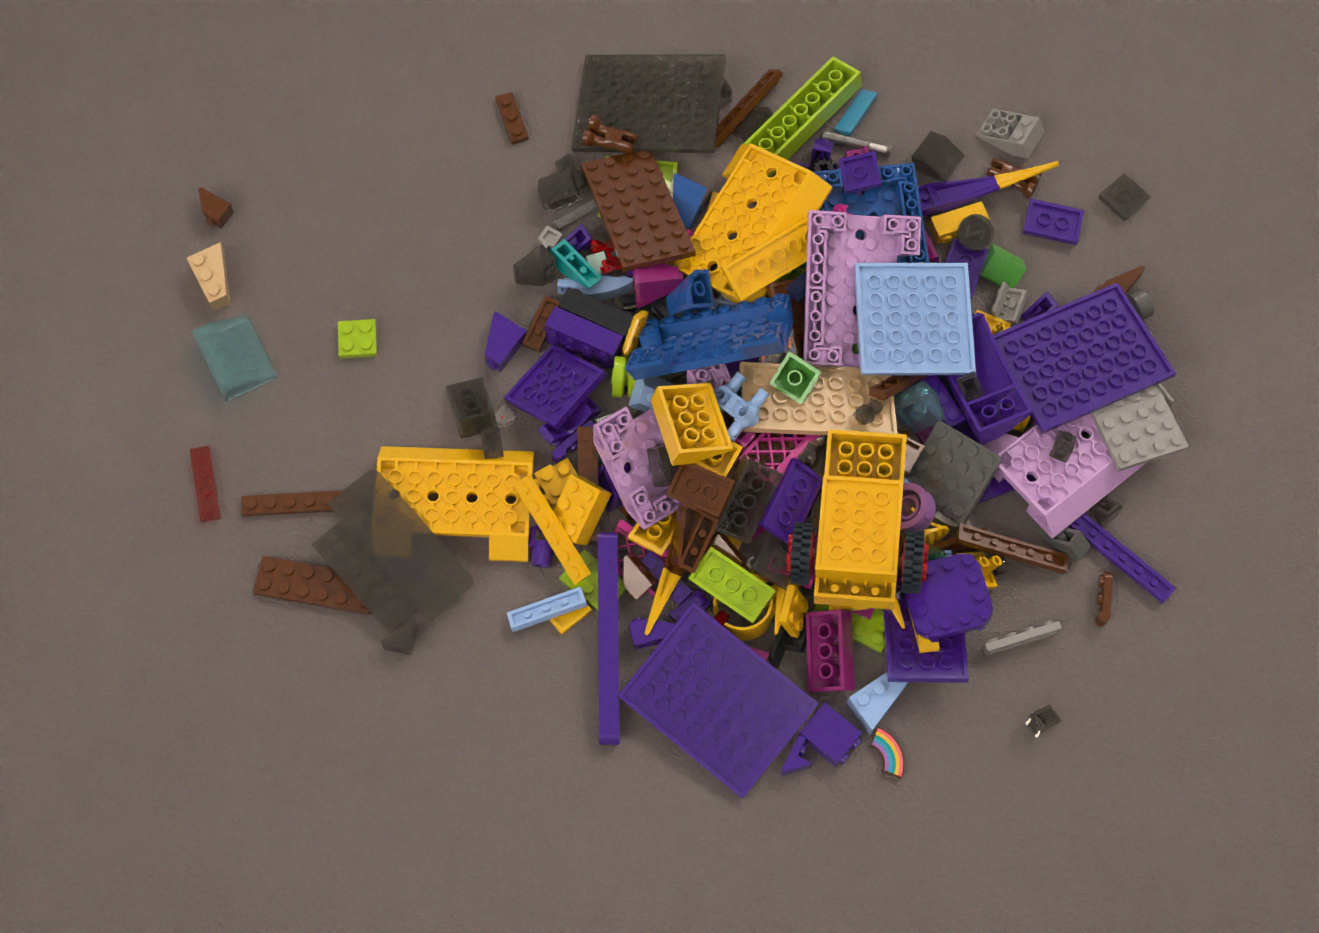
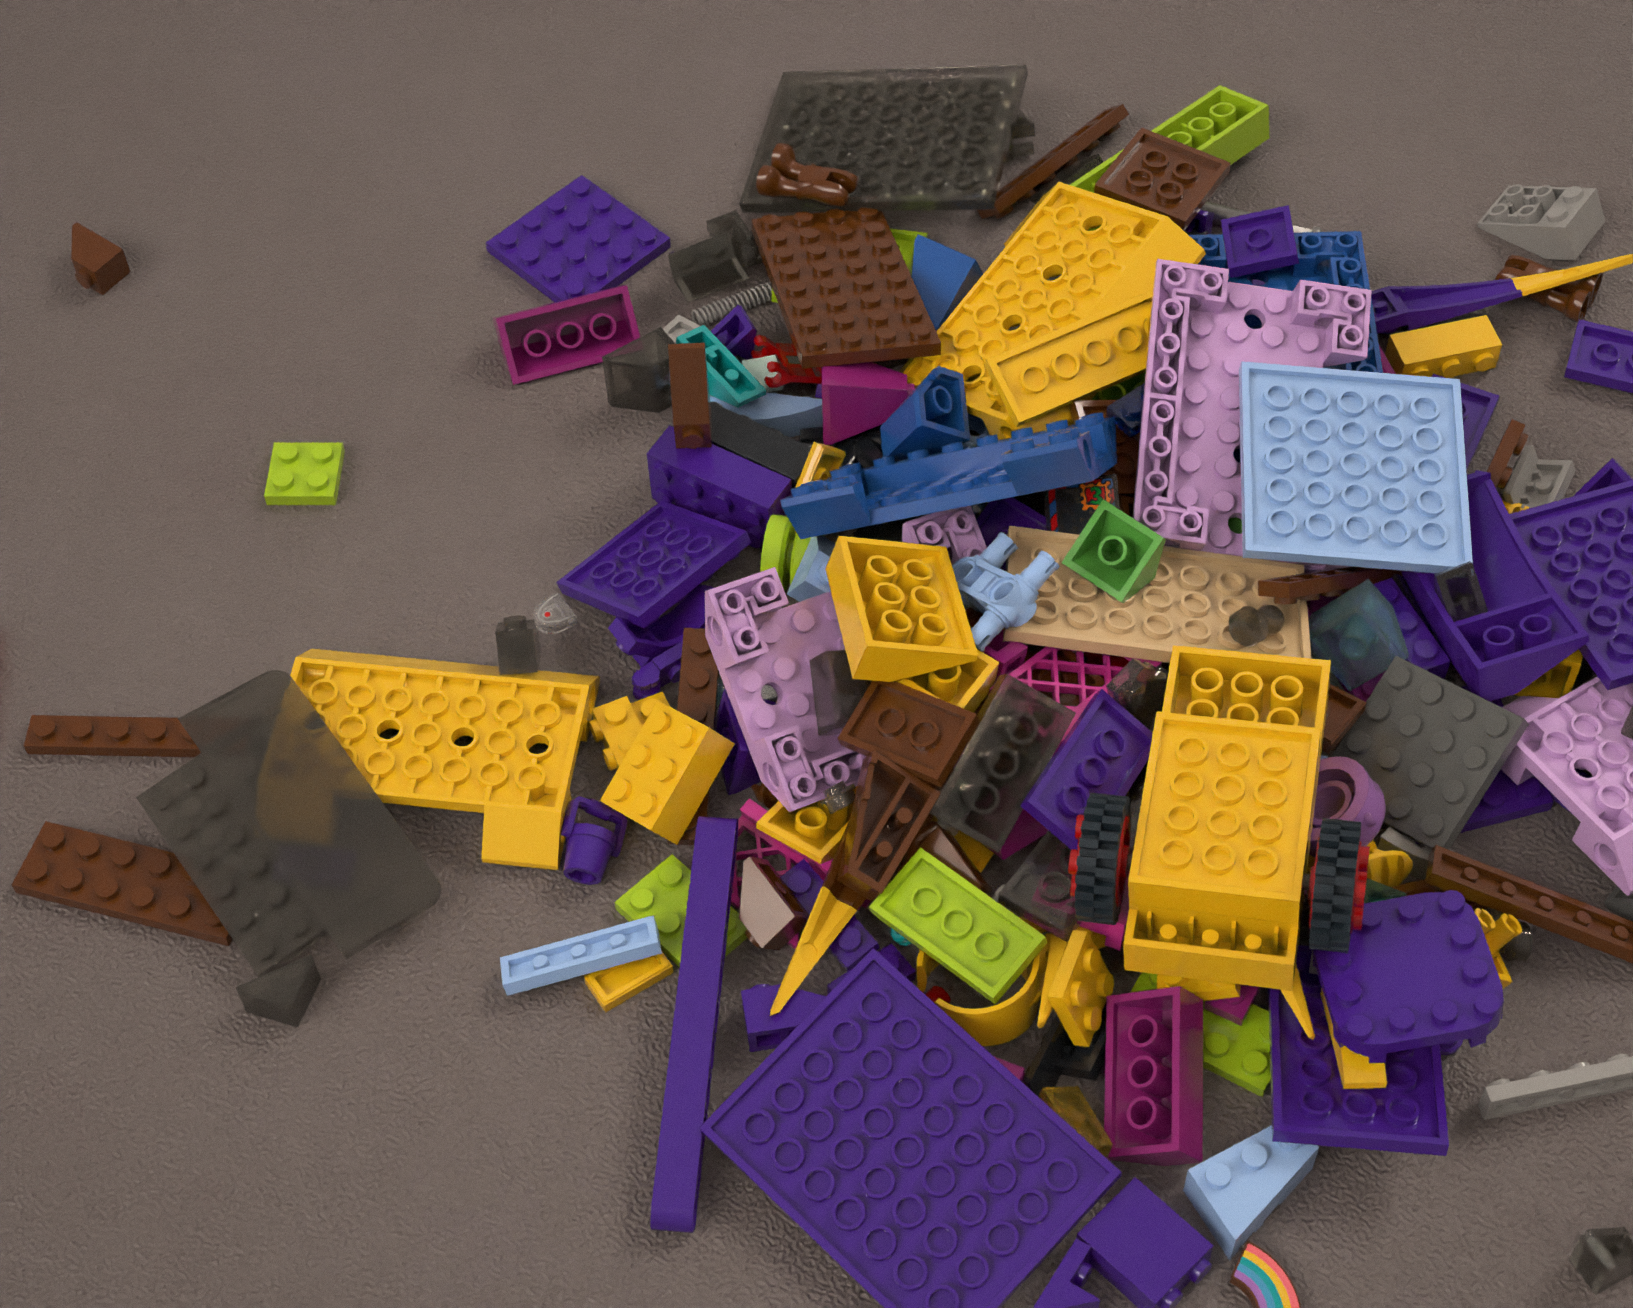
camera: 10 degrees right, 15 degrees down
(211, 275) = (65, 357): tan wedge -> none
(234, 355) = (73, 486): clear light blue slope -> none
(471, 407) = (490, 590): clear smoke slope -> none
(484, 179) = (578, 242): none -> dark purple plate
(487, 241) = (566, 333): none -> magenta slope
(503, 341) = (570, 491): dark purple slope -> none
(511, 118) = (642, 159): reddish brown plate -> none
(536, 333) = (632, 484): reddish brown plate -> none
(552, 529) = (610, 804): yellow plate -> none
(567, 297) = (690, 395): none -> reddish brown slope
(667, 520) = (838, 797): none -> clear smoke plate
(791, 669) = (1075, 1110): none -> clear yellow plate
(805, 131) = (1163, 177): none -> reddish brown plate
(856, 112) = (1259, 178): dark azure slope -> none
(937, 157) = (1404, 245): clear smoke slope -> none
(975, 232) = (1476, 360): clear smoke tile -> none
(992, 292) = (1511, 443): none -> reddish brown plate
(1002, 267) = (1542, 425): bright green slope -> none

